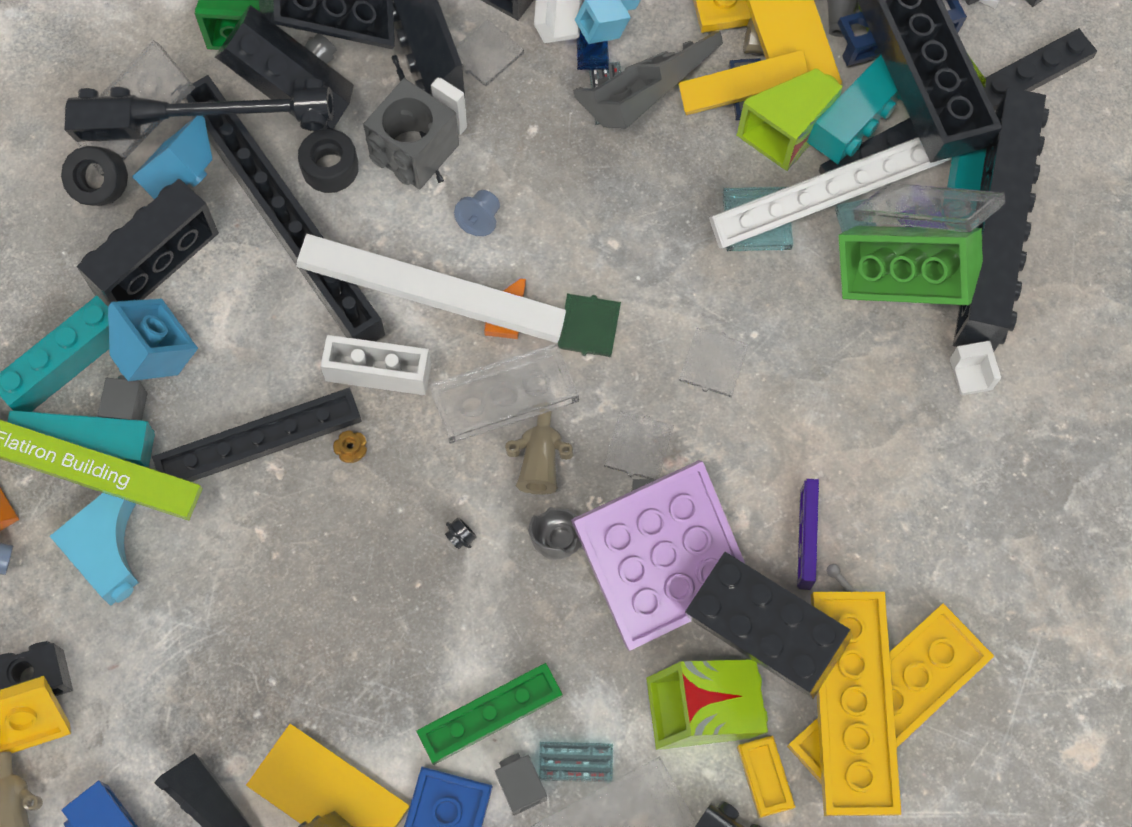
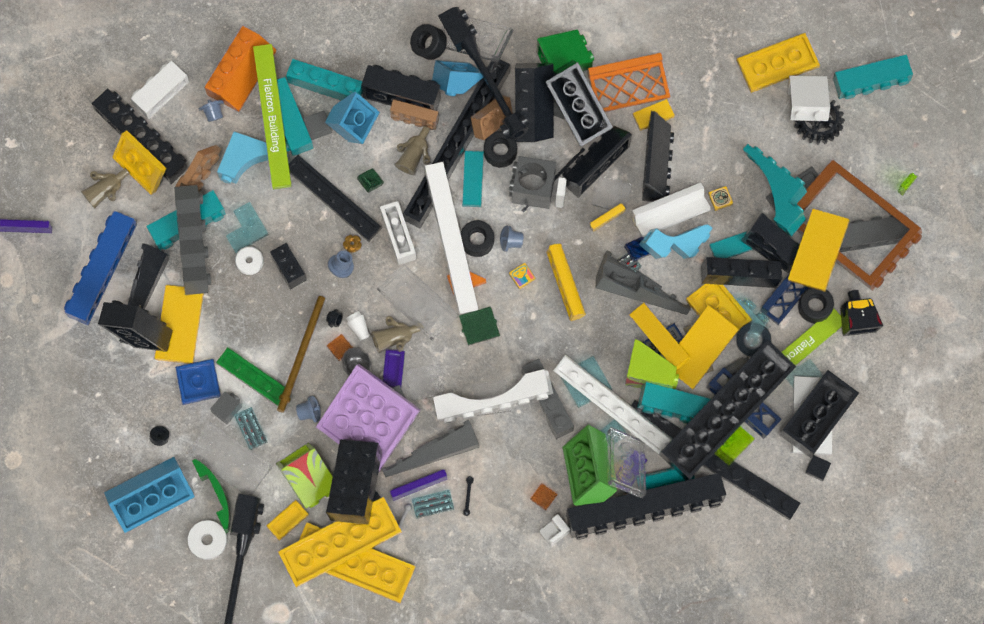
camera: 65 degrees right, 5 degrees up
(82, 627) = (200, 167): none -> medium nougat plate
(153, 694) = (165, 229): none -> teal brick
(182, 690) = (191, 239): none -> dark grey brick
(198, 252) = (414, 114): none -> medium nougat piece
(232, 594) = (251, 230): none -> clear light blue tile
(262, 369) = (370, 180): none -> clear green tile
(263, 293) = (415, 148): none -> dark tan piece
(275, 143) = (489, 119): none -> medium nougat piece
(291, 636) = (249, 268): none -> white piece
(331, 562) = (288, 266): none -> black brick
(351, 222) = (473, 179): none -> teal tile
(375, 478) = (341, 264): none -> sand blue piece
(452, 240) = (474, 227): none -> black tyre
(492, 501) = (358, 325): none -> white cone
(512, 549) = (339, 347): none -> clear orange tile
(521, 68) = (607, 217): none -> yellow tile
(544, 227) = (522, 276): none -> tile
(557, 674) = (285, 397): none -> pearl gold bar
(588, 172) = (565, 282): none -> yellow brick
(590, 481) = (393, 368): none -> dark purple tile
(595, 647) = (309, 410): none -> sand blue piece
(743, 281) = (531, 386): none -> white arch
(767, 440) = (451, 444): none -> dark grey wedge
(795, 277) = (552, 406): none -> dark grey arch
(832, 457) = (469, 480): none -> black hinge
(846, 530) = (432, 504): none -> clear light blue tile
(911, 361) = (543, 497): none -> clear orange tile

